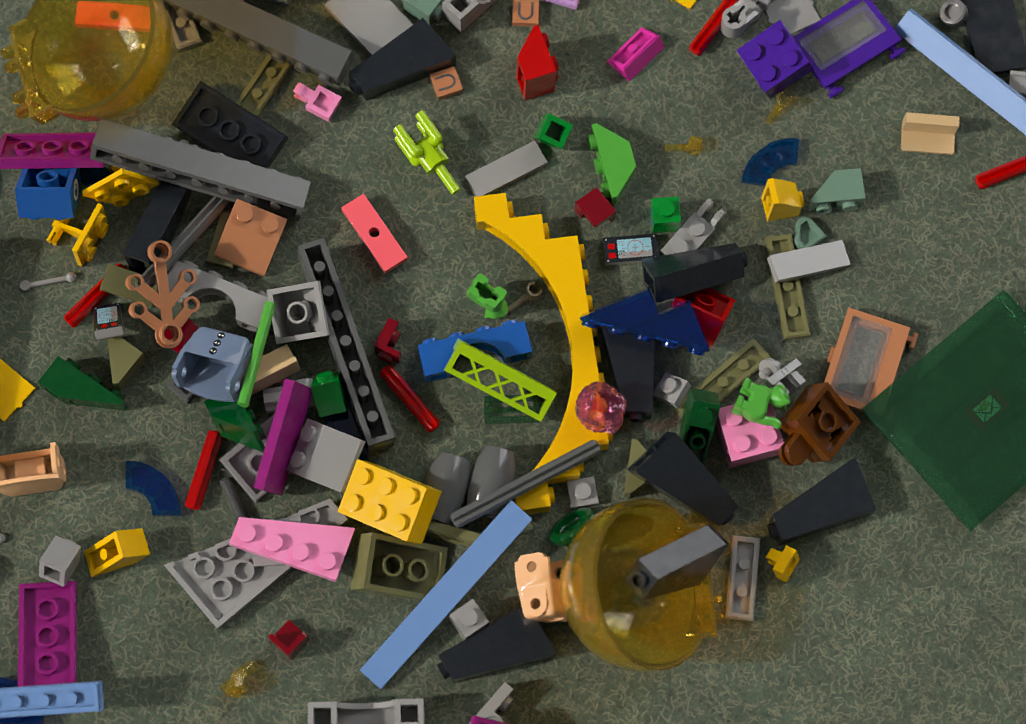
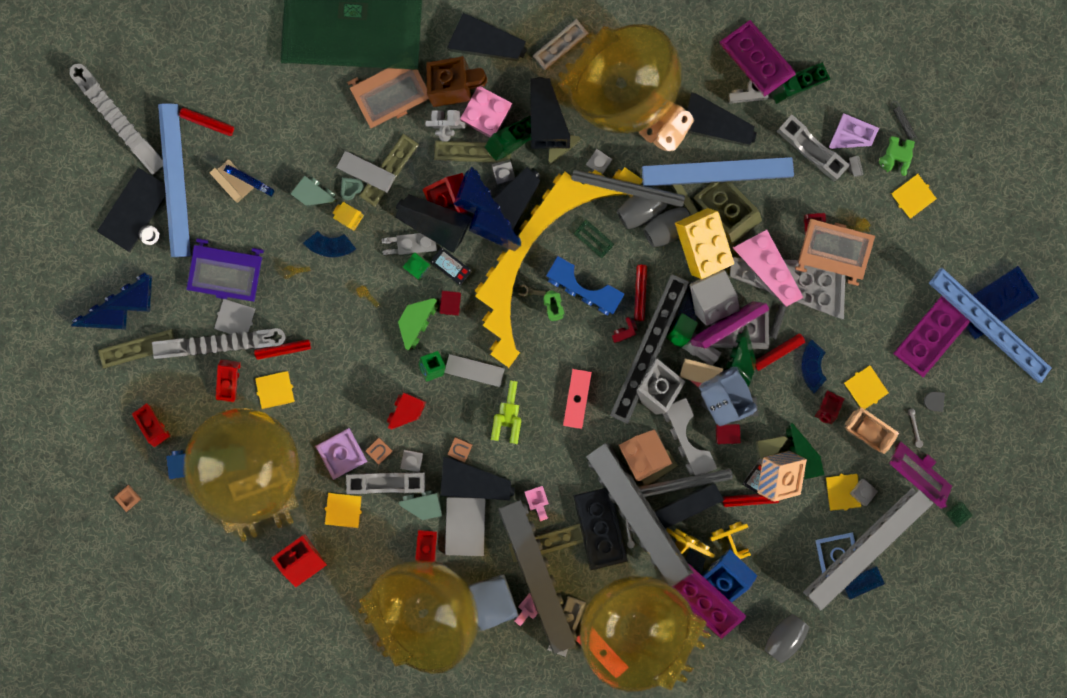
camera: 135 degrees left, 15 degrees up
(26, 285) = (782, 539): light grey hinge -> none
(59, 560) = (893, 369): light grey brick -> none
(74, 518) = (866, 387): none -> yellow piece
(83, 337) = (781, 476): none -> light nougat container
(95, 460) = (829, 407): none -> dark red bracket
(114, 283) = (732, 491): olive tile -> none
(117, 551) = (860, 348): yellow slope -> none
(164, 299) = (722, 456): nougat plant -> none
(239, 628) = (836, 250): none -> piece
(256, 354) = (703, 381): bright green bar -> none
(469, 619) = (718, 149): light grey brick -> none
(484, 31) = (411, 460): none -> light grey plate
(504, 370) = (581, 258): lime fence -> none
(568, 526) = (623, 146): dark green hair -> none
(600, 408) = (553, 190): clear pink hair -> none
(636, 53) = (342, 372): dark pink slope -> none
(677, 565) = (597, 71): black slope -> none
(757, 404) = (473, 117): bright green animal -> none
(775, 59) = (274, 295): dark purple brick -> none
(783, 562) = (533, 31): yellow tile -> none
(913, 145) = (249, 180): none -> clear blue tile

